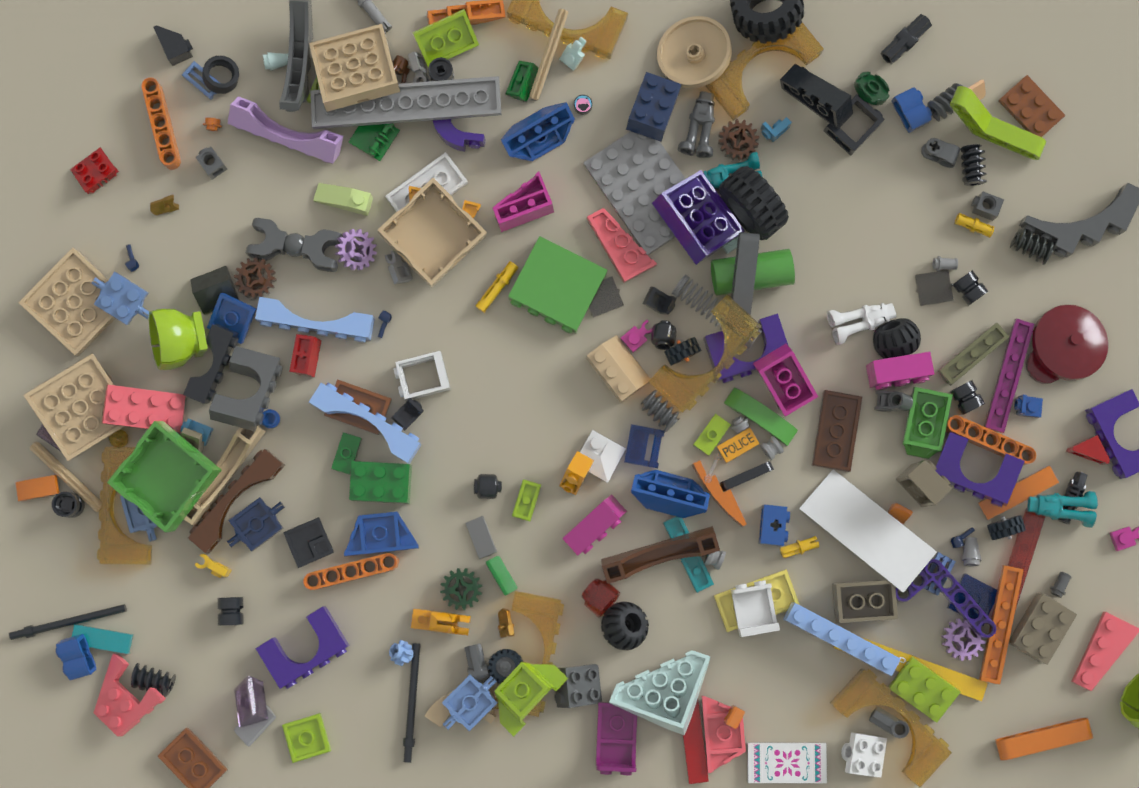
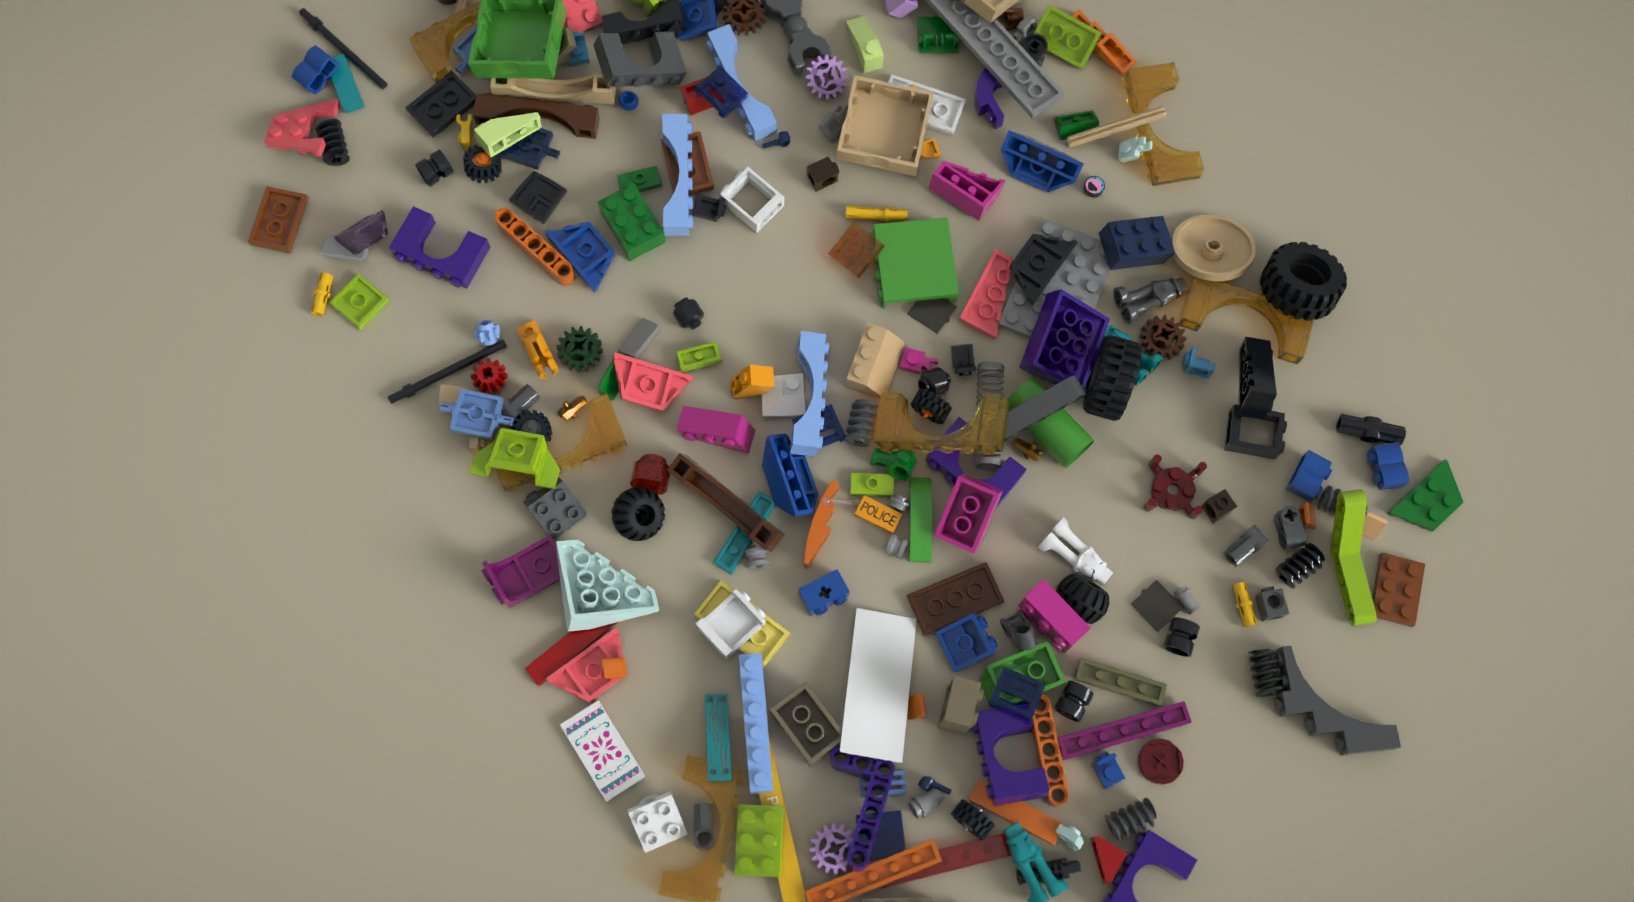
camera: 55 degrees right, 10 degrees down
(174, 570) = (442, 104): none -> black plate
(238, 540) = (505, 131): none -> yellowish green slope
(251, 569) = (480, 165): none -> black wheel
(281, 764) = (321, 294): none -> yellow pin
(318, 336) = (726, 88): none -> clear blue plate
(436, 306) = (822, 173): none -> dark brown brick
(436, 679) = (485, 369): none -> red gear
(519, 323) = (856, 249): none -> clear orange tile
(524, 554) = (647, 383): none -> coral wing
(582, 413) = (805, 433): none -> light blue arch
(622, 191) = (1039, 263): none -> black wing
(710, 405) = (898, 463): none -> green connector
(746, 476) = (855, 539): black beam -> none
(762, 299) = (1031, 451): none -> pearl gold piece
(799, 547) = (819, 631): yellow axle -> none
(833, 673) = (717, 737): none -> teal tile
(865, 207) = (1181, 480): none -> dark red plate
(871, 88) = (1300, 426): dark green tile -> none
(876, 444) = (967, 641): none -> blue plate
(893, 191) = (1219, 506): none -> dark brown brick
(933, 187) = (1248, 543): none -> dark grey piece
(937, 430) = (1019, 687): none -> clear blue plate
(939, 132) = (1307, 516): none -> orange slope
(941, 47) = (1388, 466): none -> blue brick
(983, 34) = (1430, 499): none -> green wing
(1062, 465) = (1071, 837): none -> light aqua plate
(1070, 342) = (1199, 770): dark red dish -> none
(1074, 414) = (1131, 818): none -> dark grey piece

